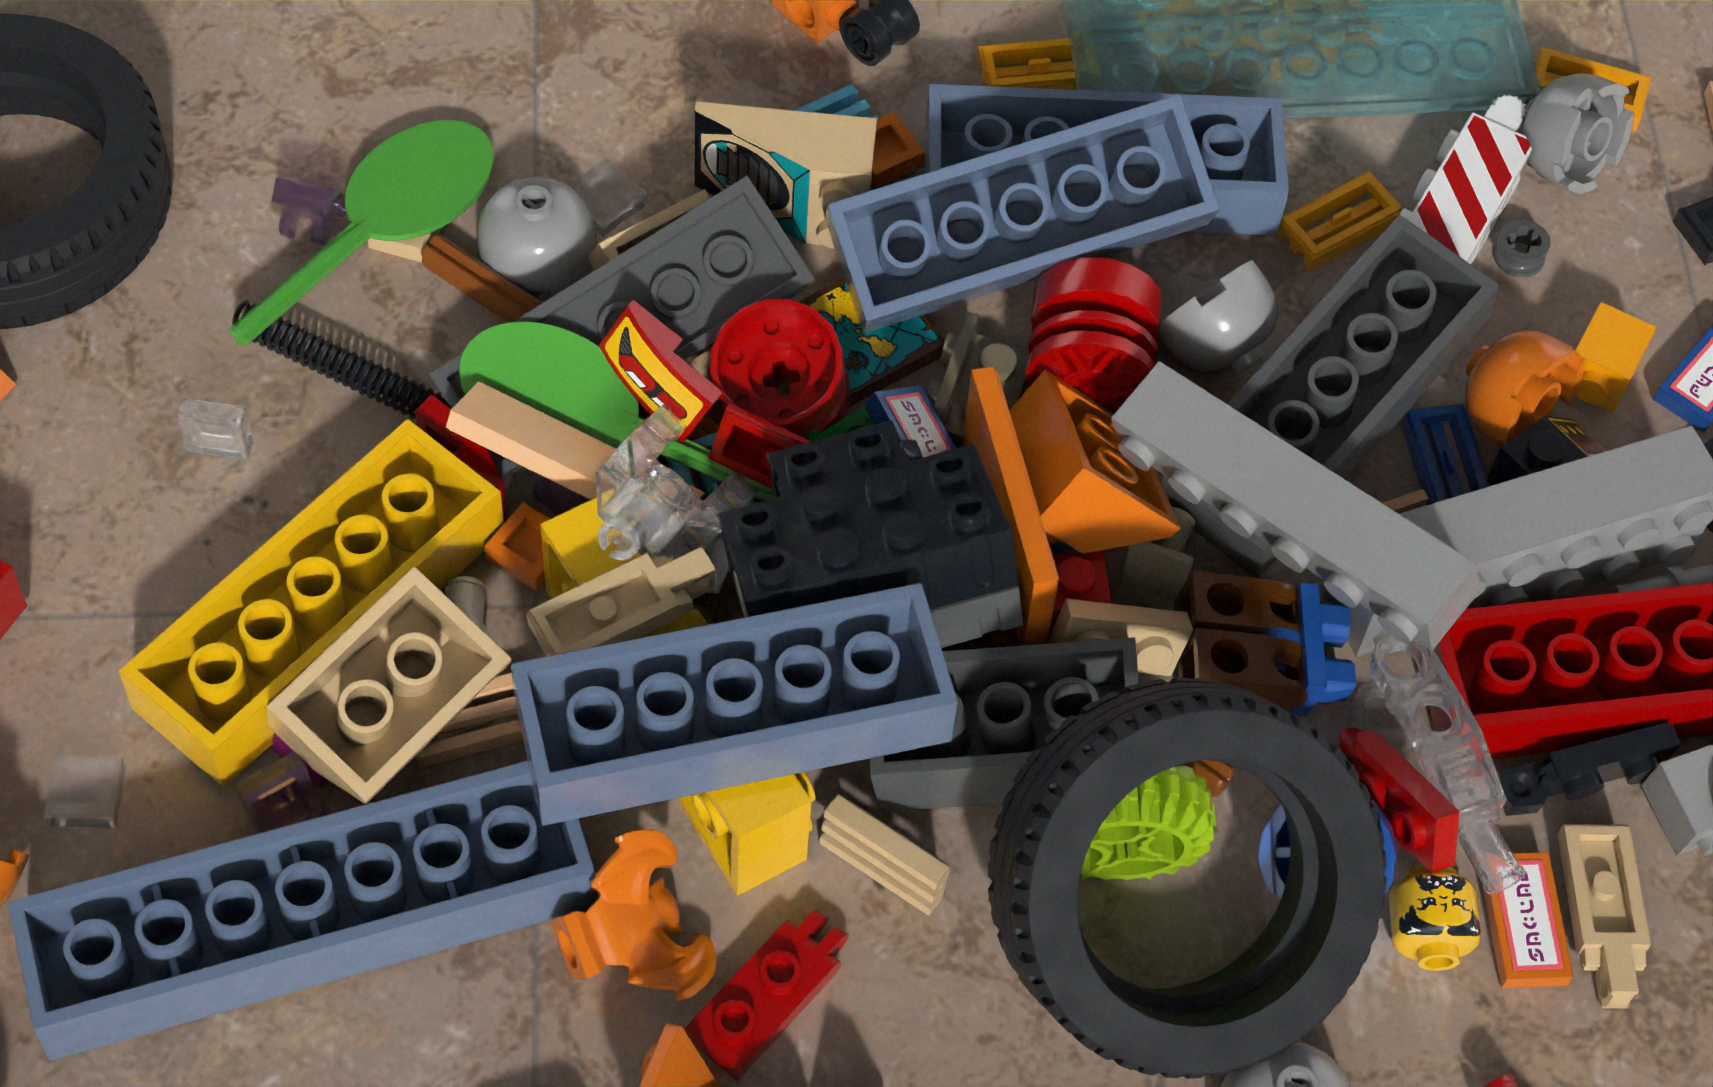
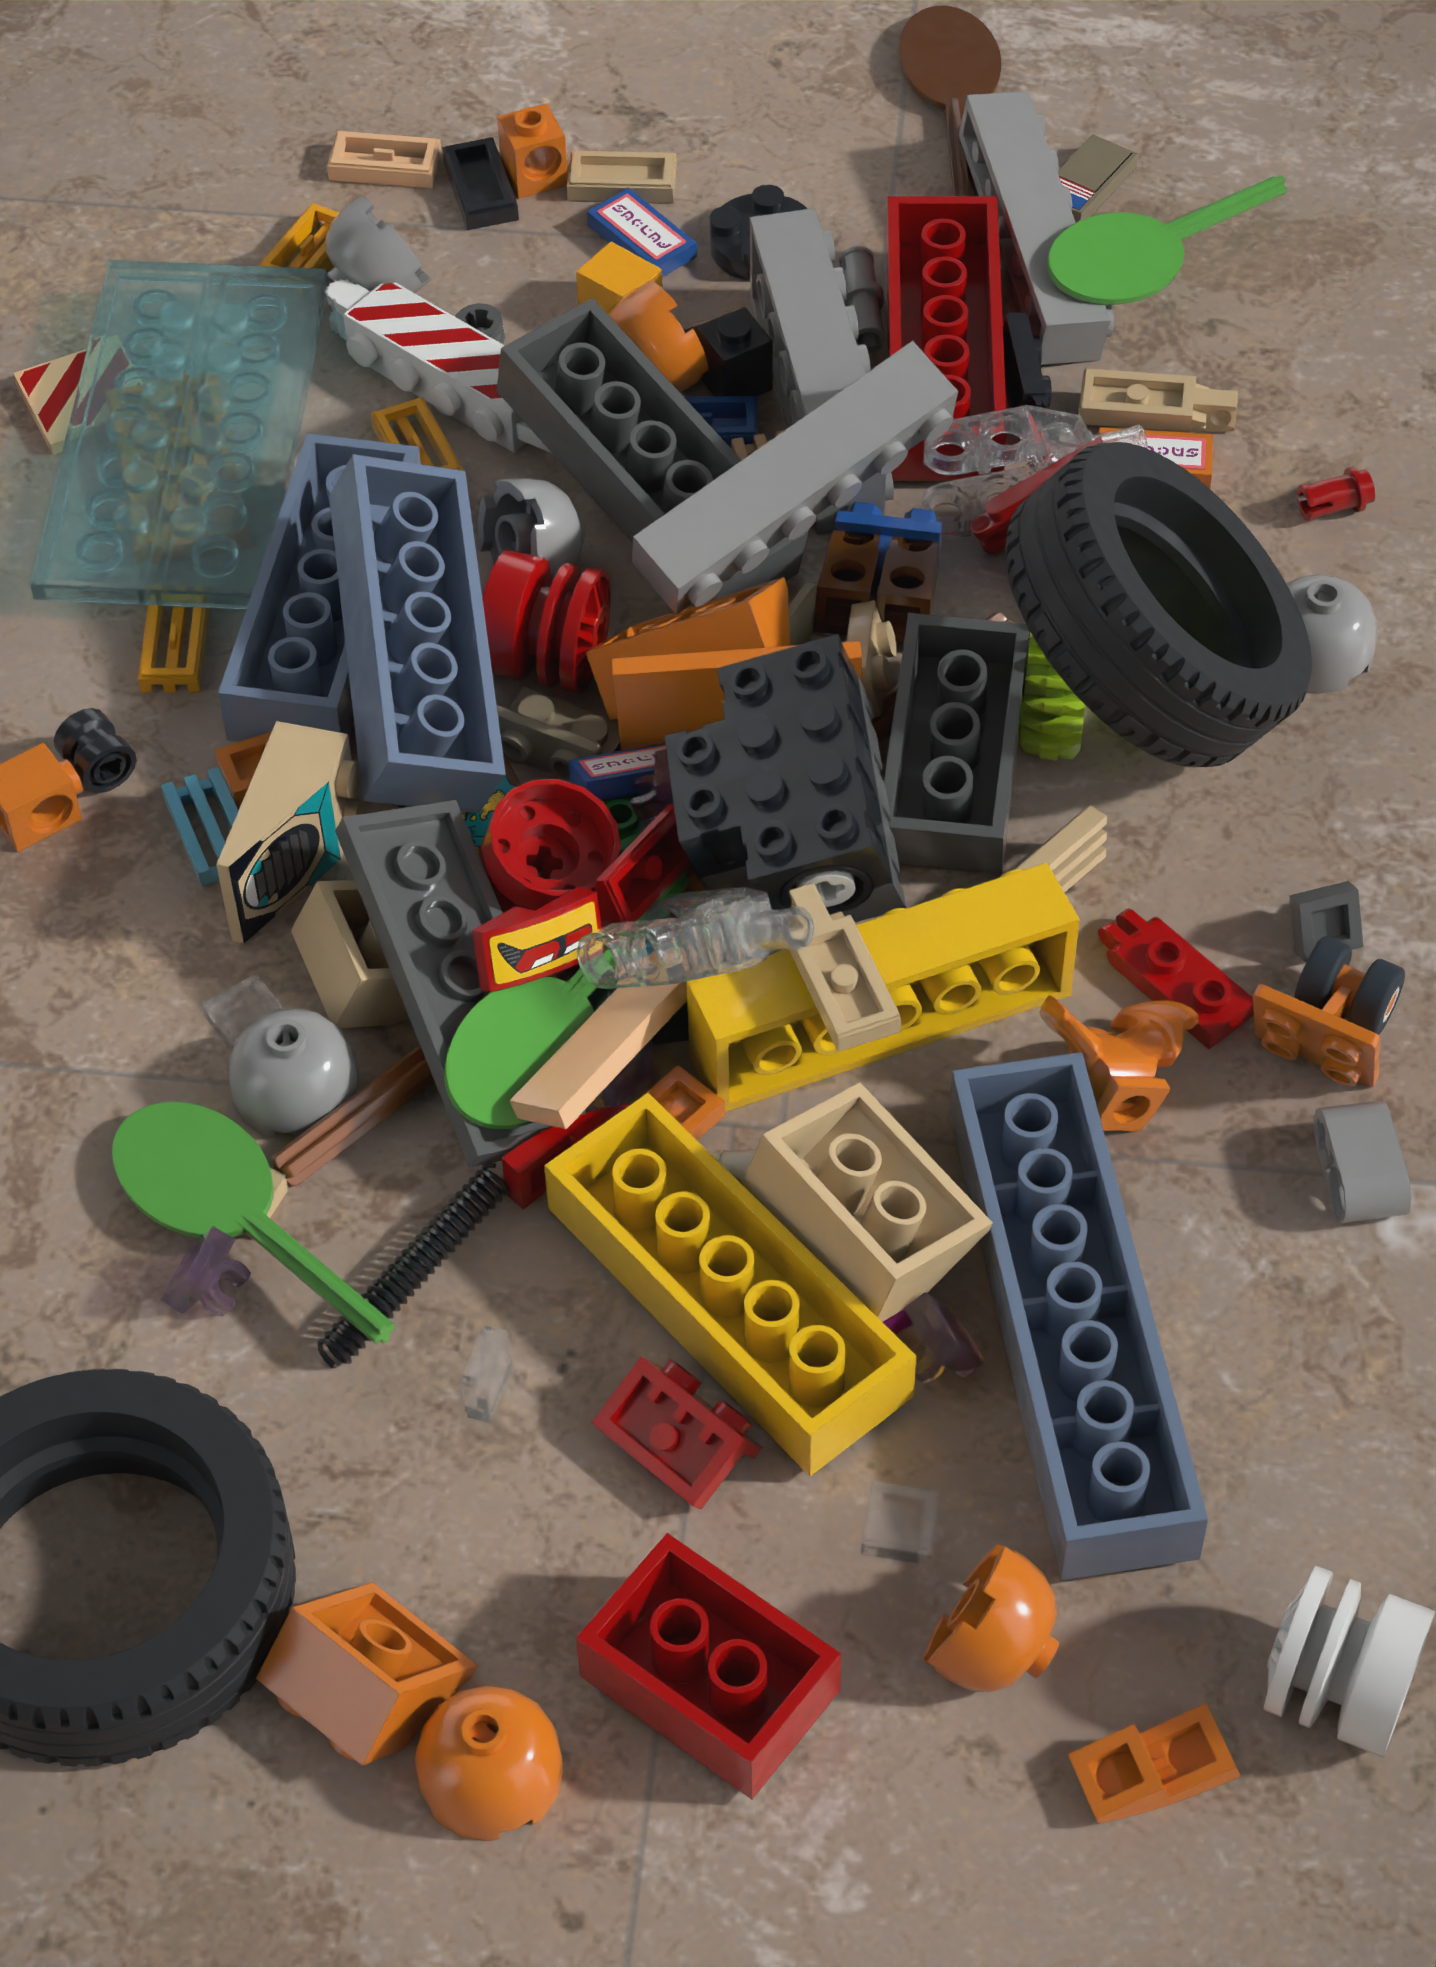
camera: 75 degrees left, 5 degrees down
(163, 581) = (675, 1430): none -> red bracket
(733, 703) = (969, 885): sand blue brick -> none

